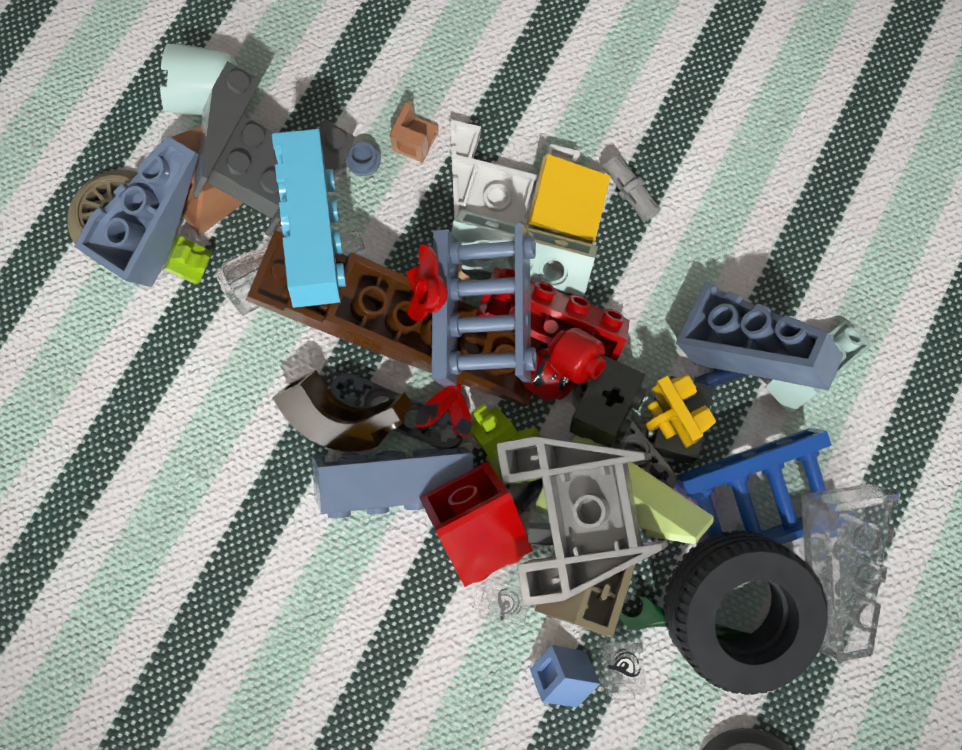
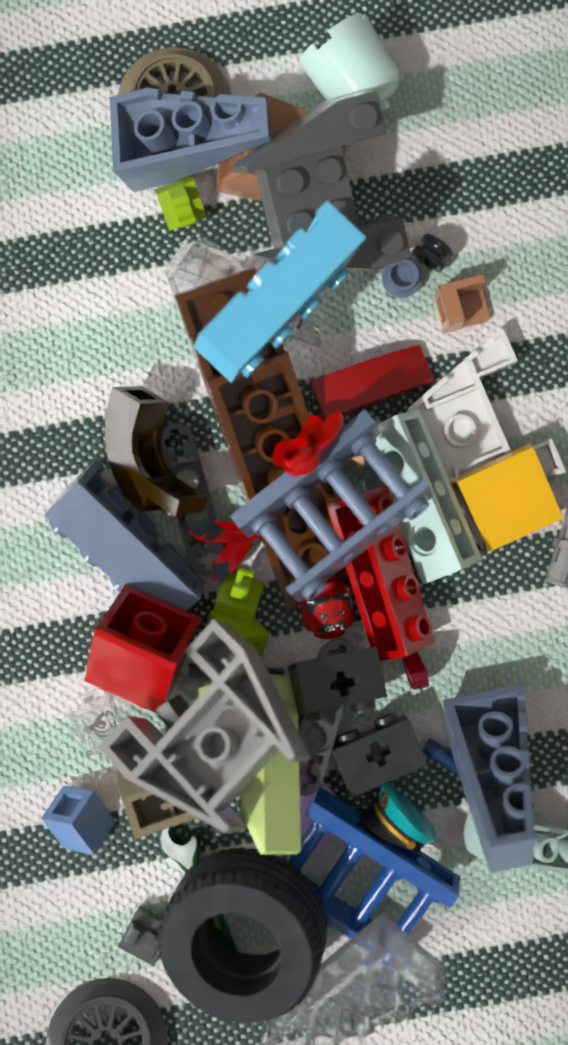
camera: 45 degrees right, 10 degrees up
(364, 126) = (433, 252): none -> black bush
(416, 227) = (371, 382): none -> red slope
(577, 355) = (355, 624): red head -> none
(622, 669) = (121, 864): clear brick -> none
(641, 348) = (415, 671): none -> dark red tile
(671, 397) = (385, 733): yellow hips -> none
(689, 695) = (142, 936): none -> dark grey tile
(739, 438) = (398, 821): none -> piece

